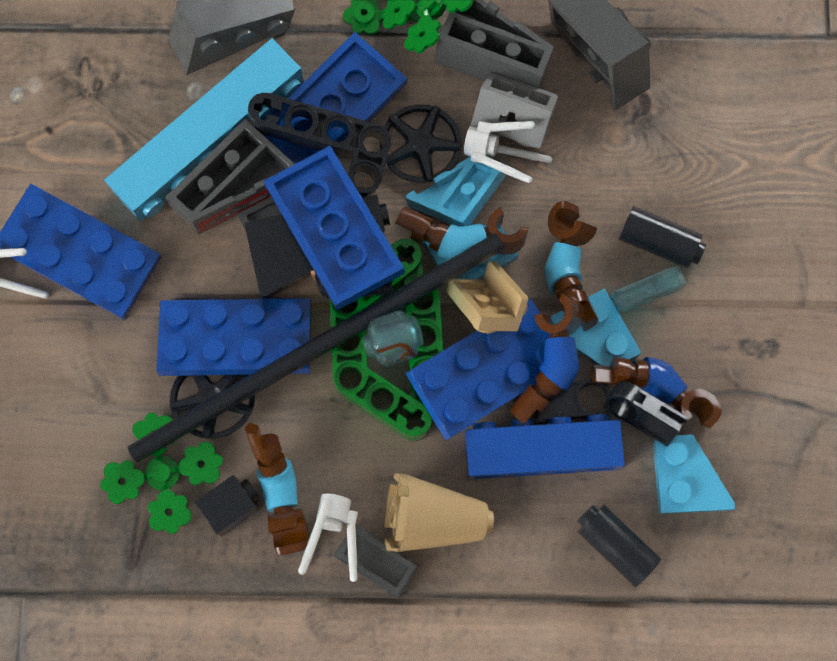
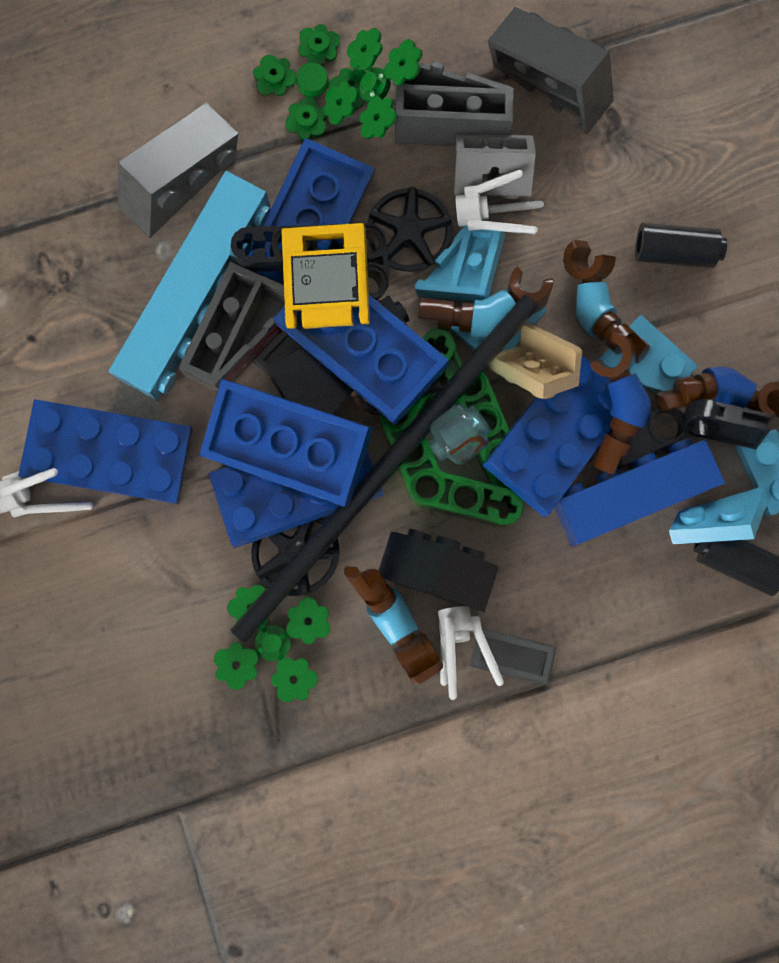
camera: 20 degrees left, 5 degrees up
(228, 504) = (350, 652): black brick -> none
(236, 294) = (286, 442): none -> blue plate
(321, 163) = (325, 281): none -> container
(335, 455) = (439, 568): none -> black brick
(432, 516) = (553, 596): tan cone -> none
(610, 498) = (721, 520): none -> medium azure wing
(648, 289) = (685, 300): clear light blue piece -> none

